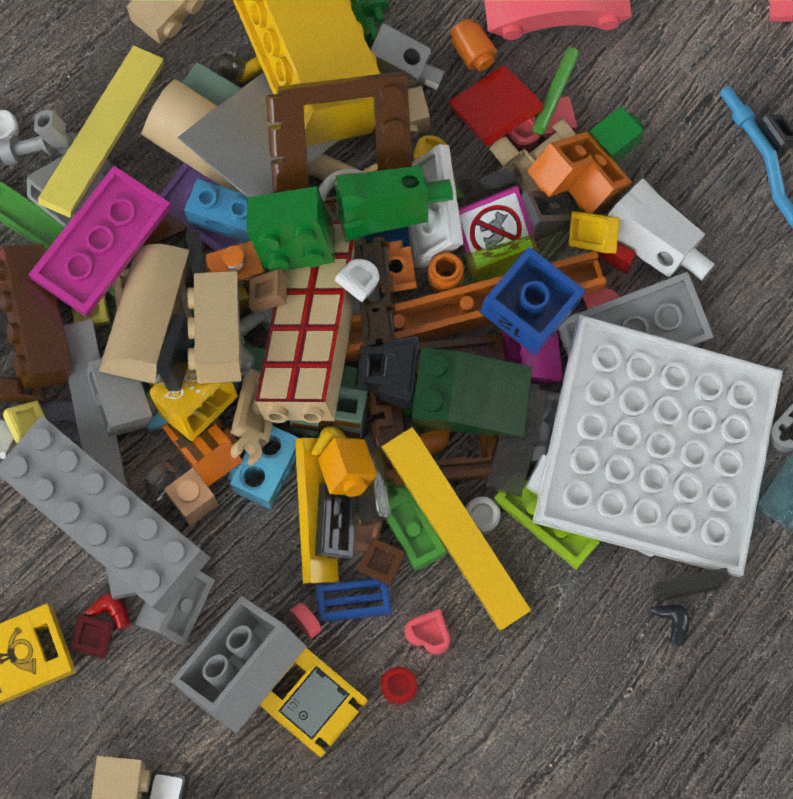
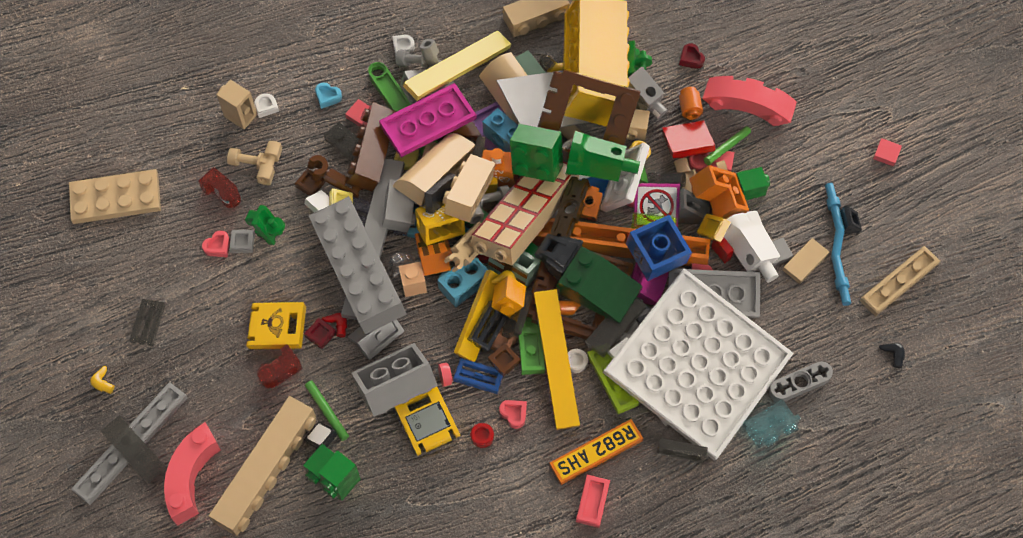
camera: 20 degrees right, 10 degrees down
(61, 720) = (280, 369): none -> clear red leg
(158, 748) = (327, 411): none -> bright green bar
(267, 291) = (508, 182): medium nougat tile -> none
(358, 278) = (563, 194): white tile -> none
(445, 265) = (616, 215): orange brick -> none
(570, 638) = (596, 451): none -> tile
(597, 712) = (593, 501): none -> coral tile
(679, 618) = (665, 471): black animal -> none
(702, 219) = (783, 250): none -> light grey tile
(741, 222) = (805, 261): none -> tan tile

